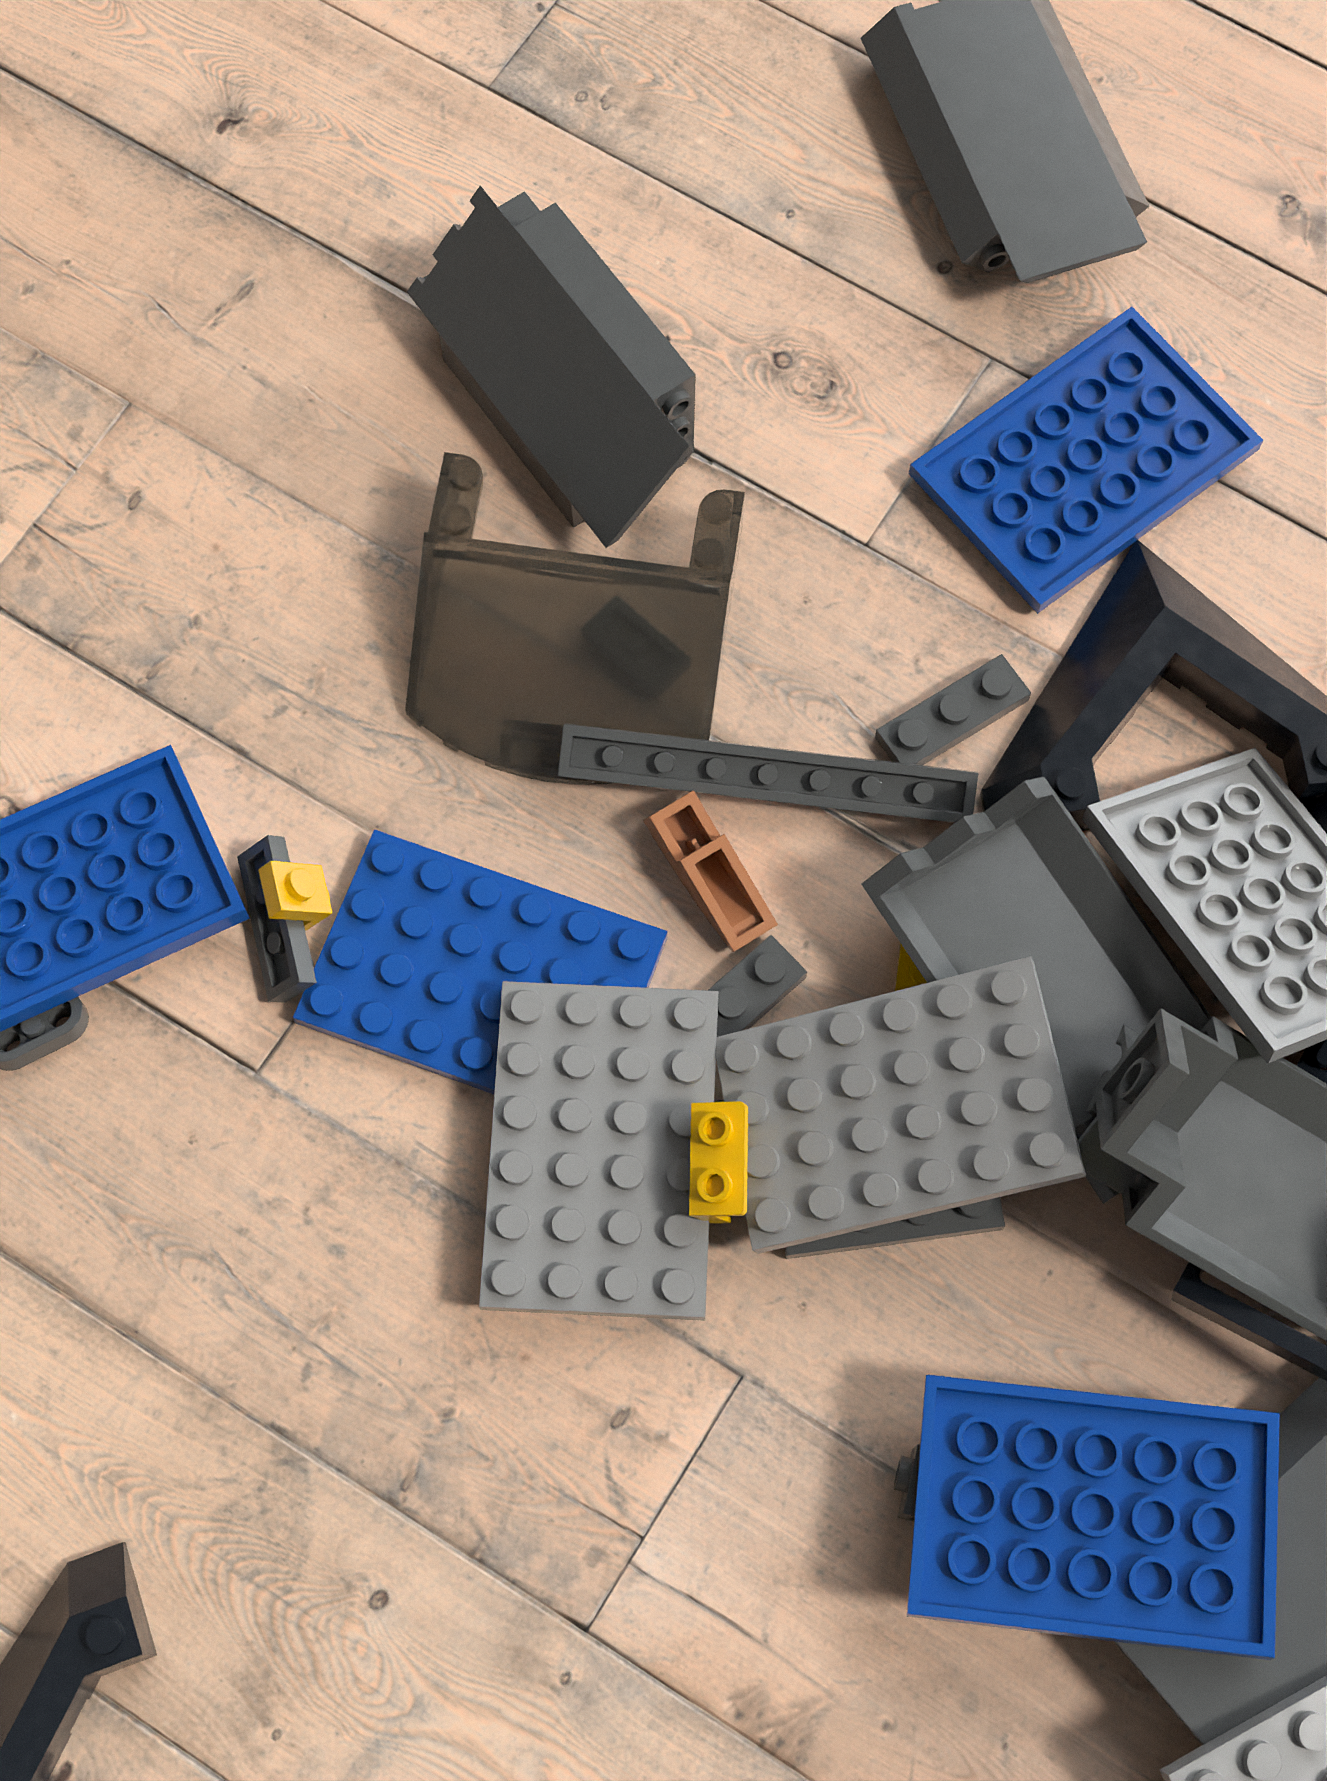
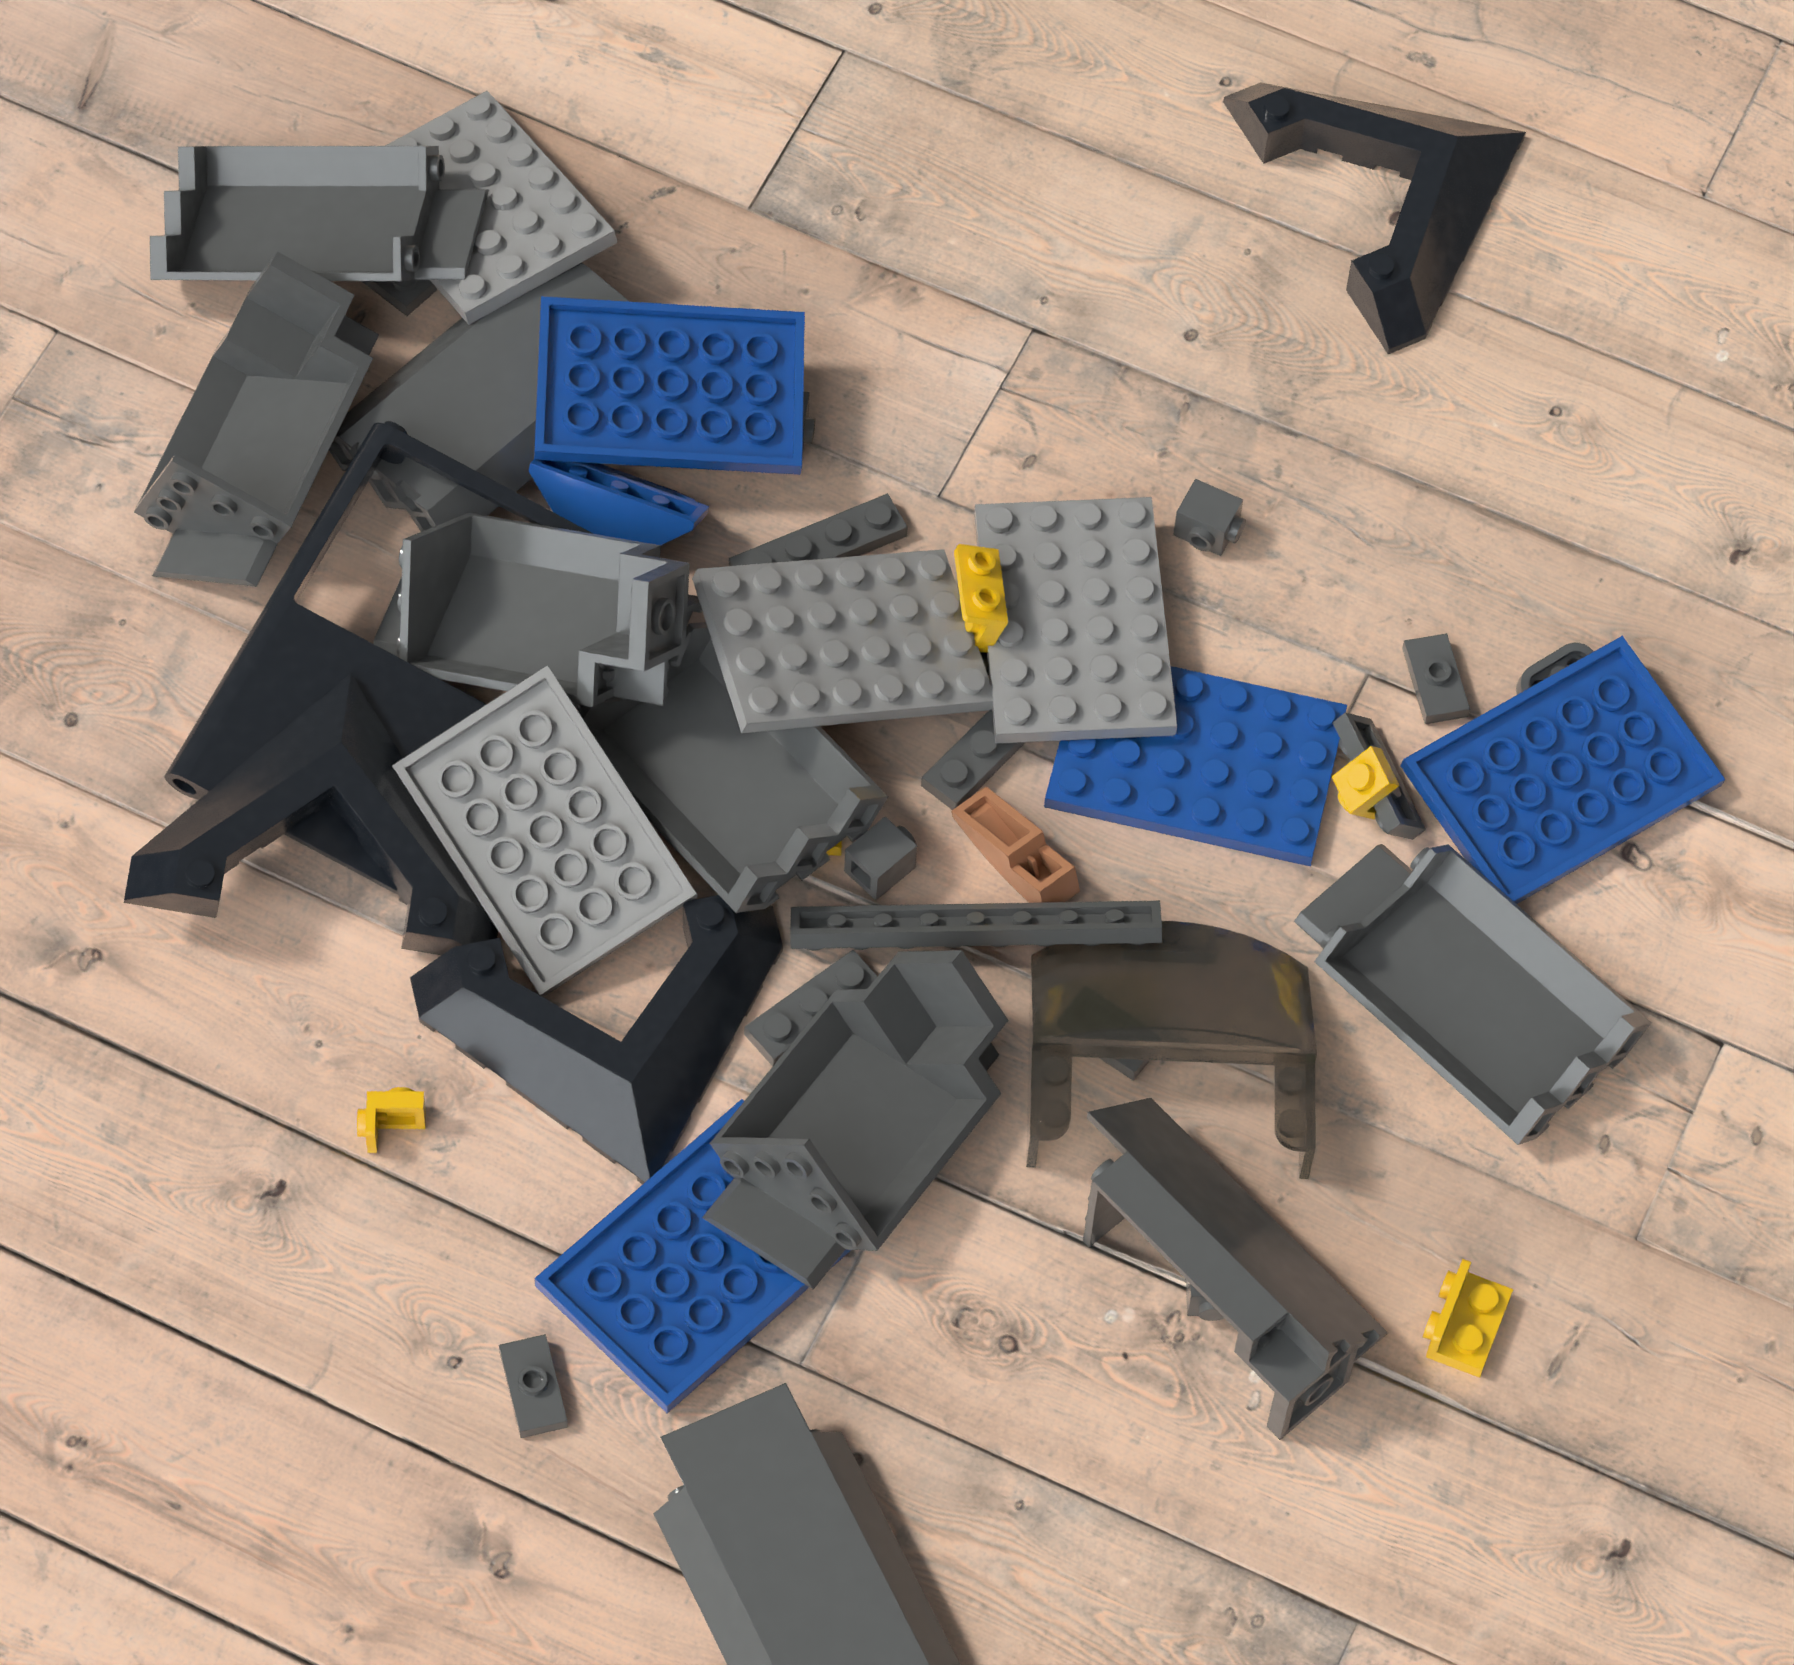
camera: 170 degrees right, 10 degrees down
(178, 1050) = (1436, 678): none -> dark grey plate
(236, 663) = (1471, 984): none -> dark grey panel
(322, 328) = (1468, 1322): none -> yellow bracket
(409, 1287) = (1209, 518): none -> dark grey brick
(860, 857) = (881, 857): none -> dark grey brick
(902, 1307) = (841, 535): none -> dark grey plate
(919, 555) = (859, 1114): none -> dark grey panel
(1133, 1353) = (615, 502): none -> blue wedge
(1260, 353) = (533, 1386): none -> dark grey plate

